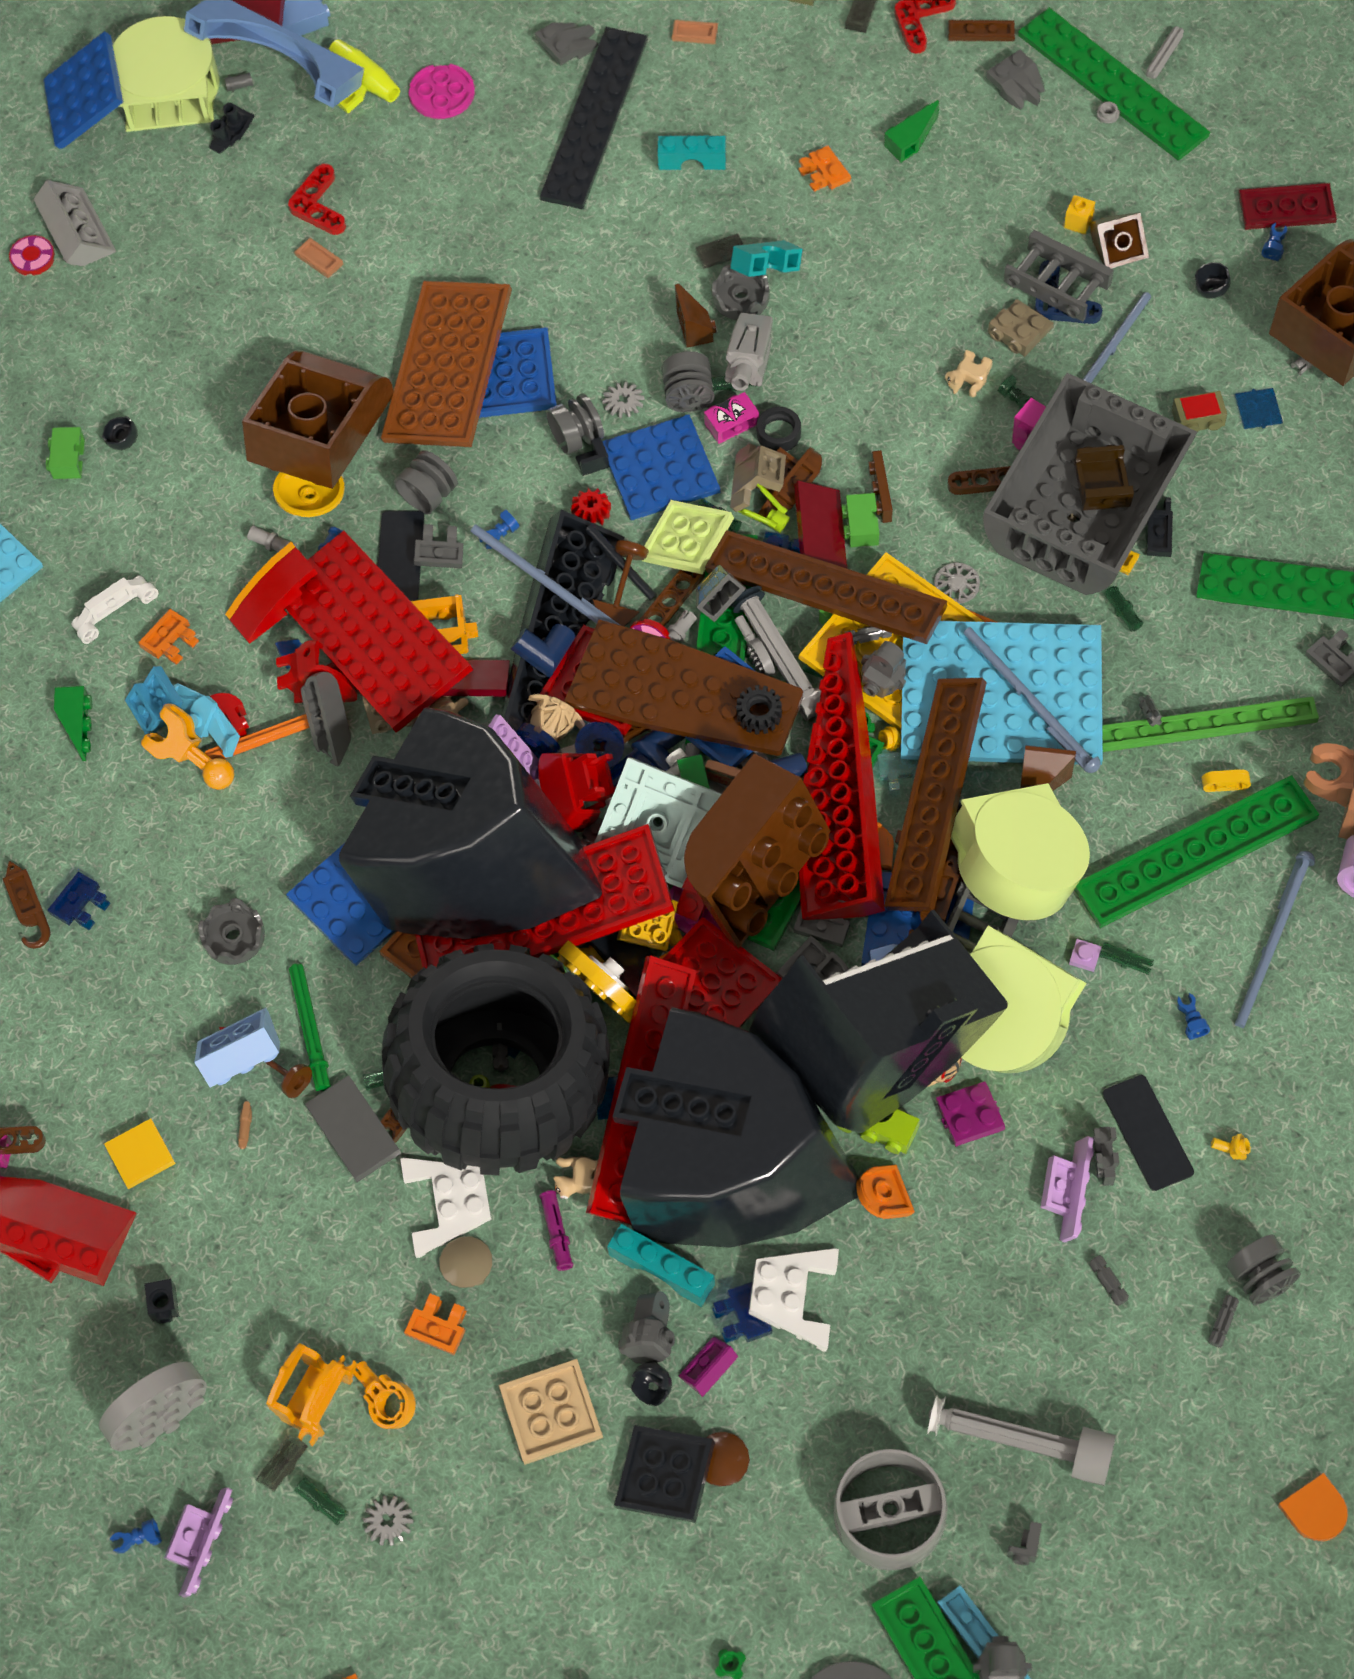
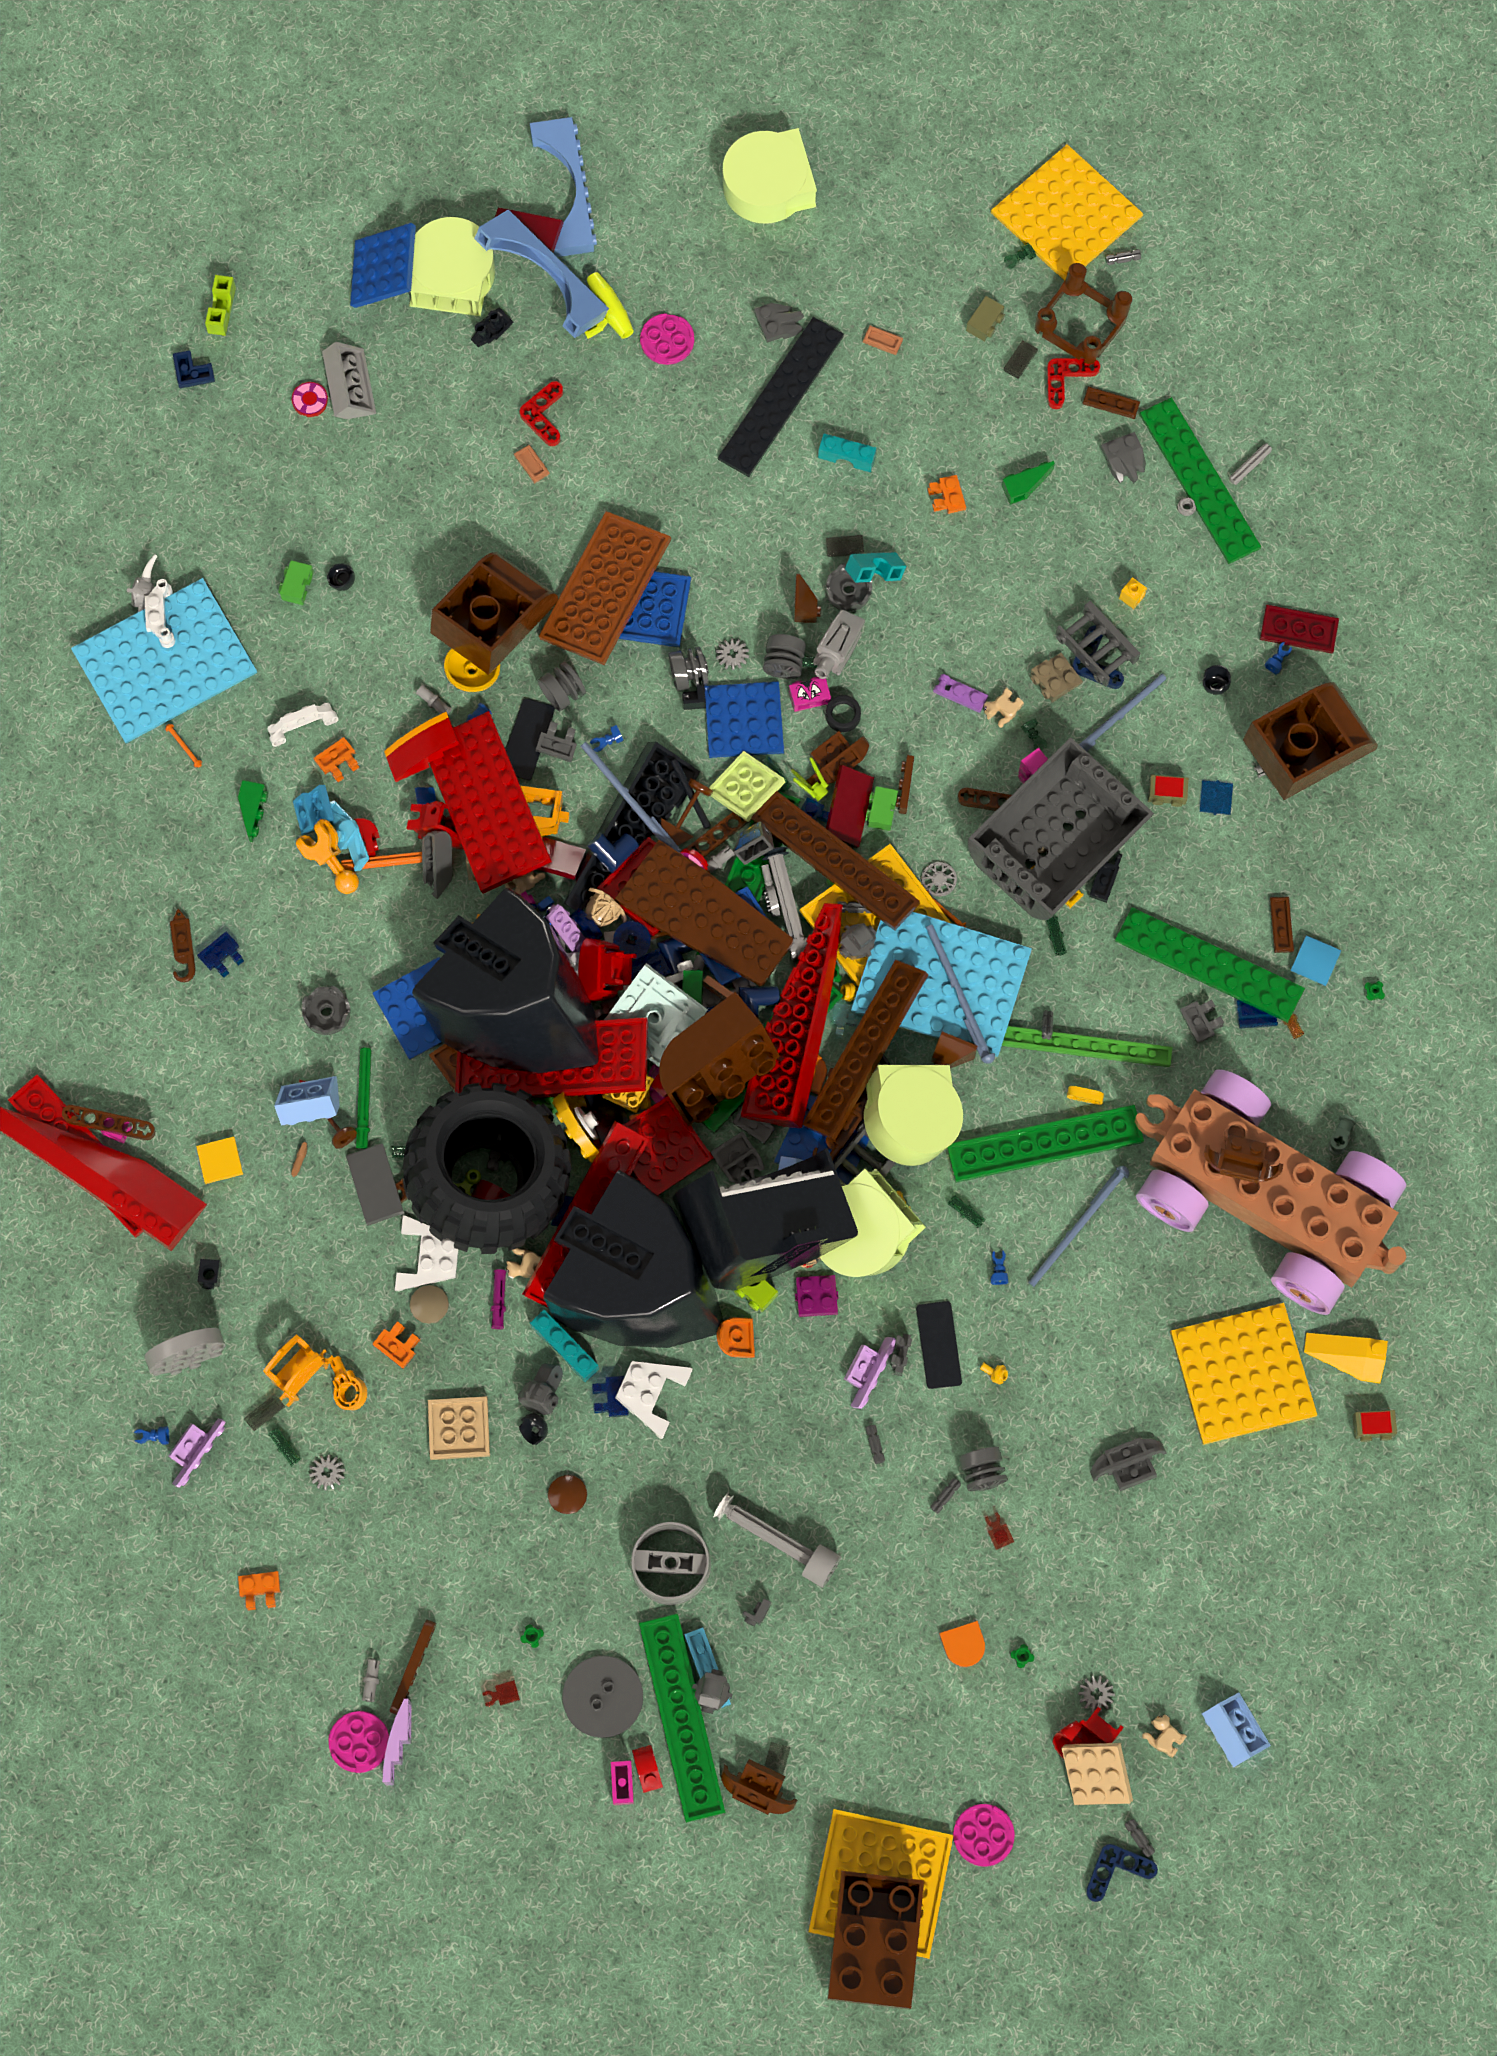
camera: 10 degrees right, 10 degrees up
(238, 81) = (508, 286): dark grey pin -> none
(591, 506) = (687, 744): red gear -> none
(664, 1473) = (524, 1494): black plate -> none
(708, 1365) = (577, 1426): magenta slope -> none
(755, 467) = (814, 746): dark tan plate -> none
(759, 697) = (758, 938): black tyre -> none
(912, 373) = (960, 693): none -> medium lavender plate
(1085, 955) = (937, 1200): lavender plate -> none
(1102, 477) = (1073, 827): dark brown panel -> none
(1119, 239) = (1156, 623): reddish brown slope -> none
(1311, 1351) = (999, 1534): none -> clear red plate

